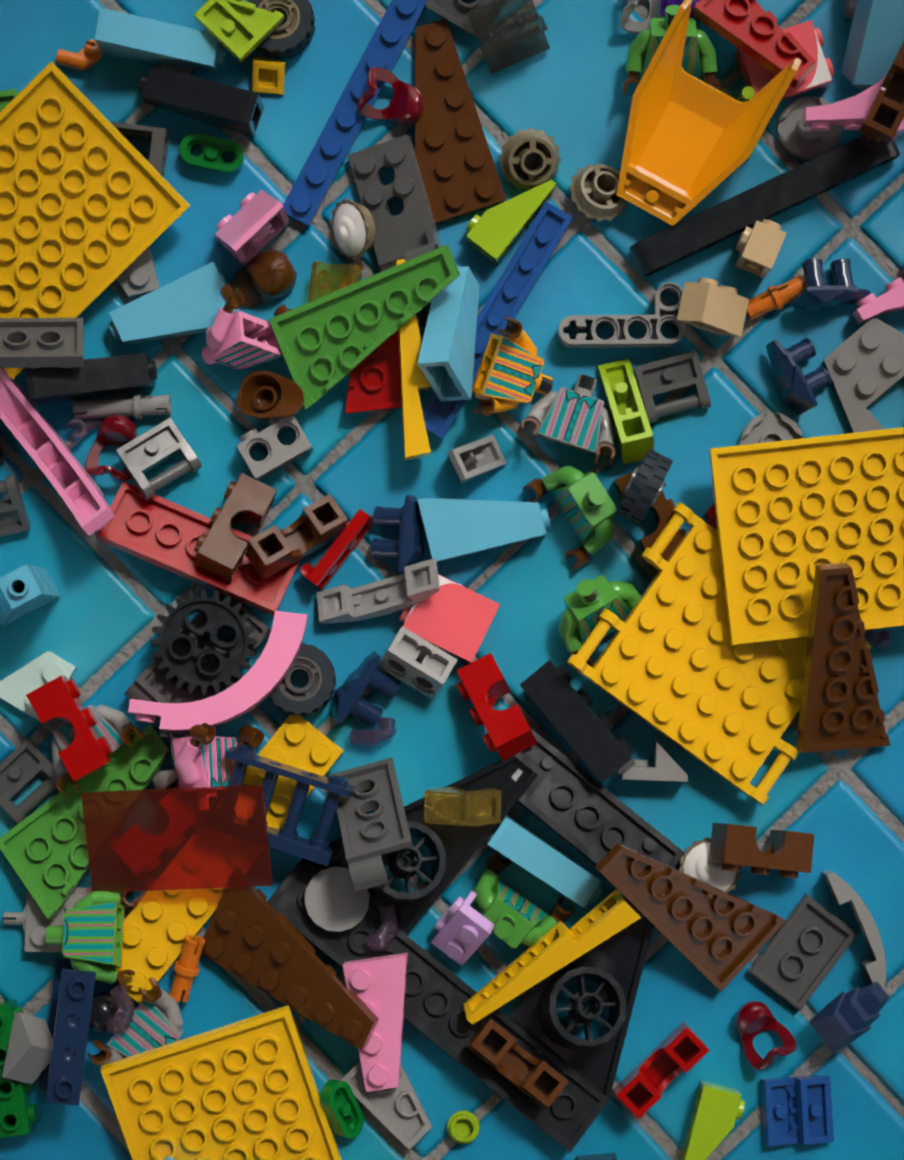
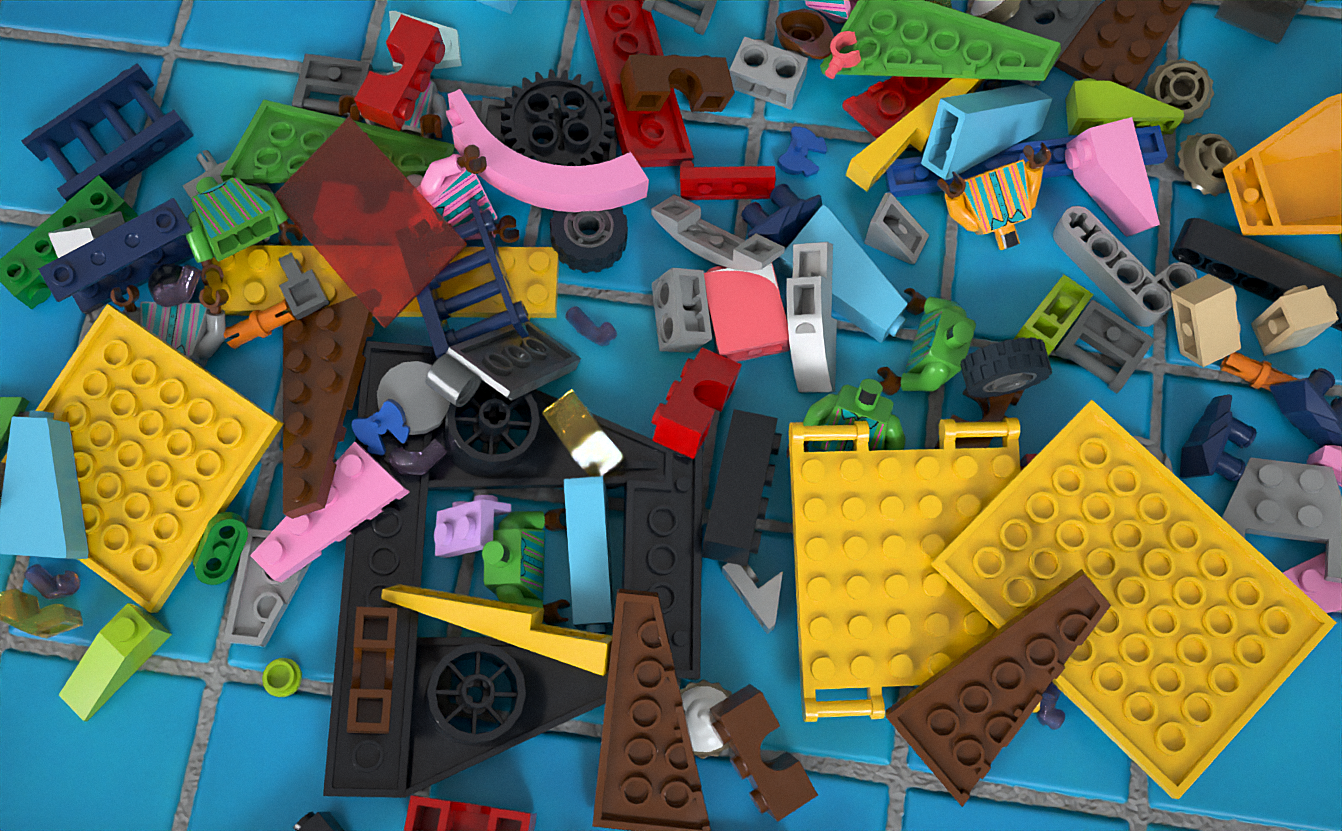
camera: 55 degrees right, 15 degrees down
(191, 922) = (303, 289): none -> dark grey plate
(278, 548) = (720, 146): reddish brown arch -> none
(317, 398) = (842, 60): none -> coral piece
(340, 946) = (390, 418): none -> blue piece
(347, 464) = (795, 160): none -> blue piece
(348, 696) = (602, 283): dark blue connector -> none
(494, 579) = (809, 318): none -> light grey slope
(547, 275) = (1113, 173): none -> bright pink slope
(573, 420) = (1000, 282): torso -> none

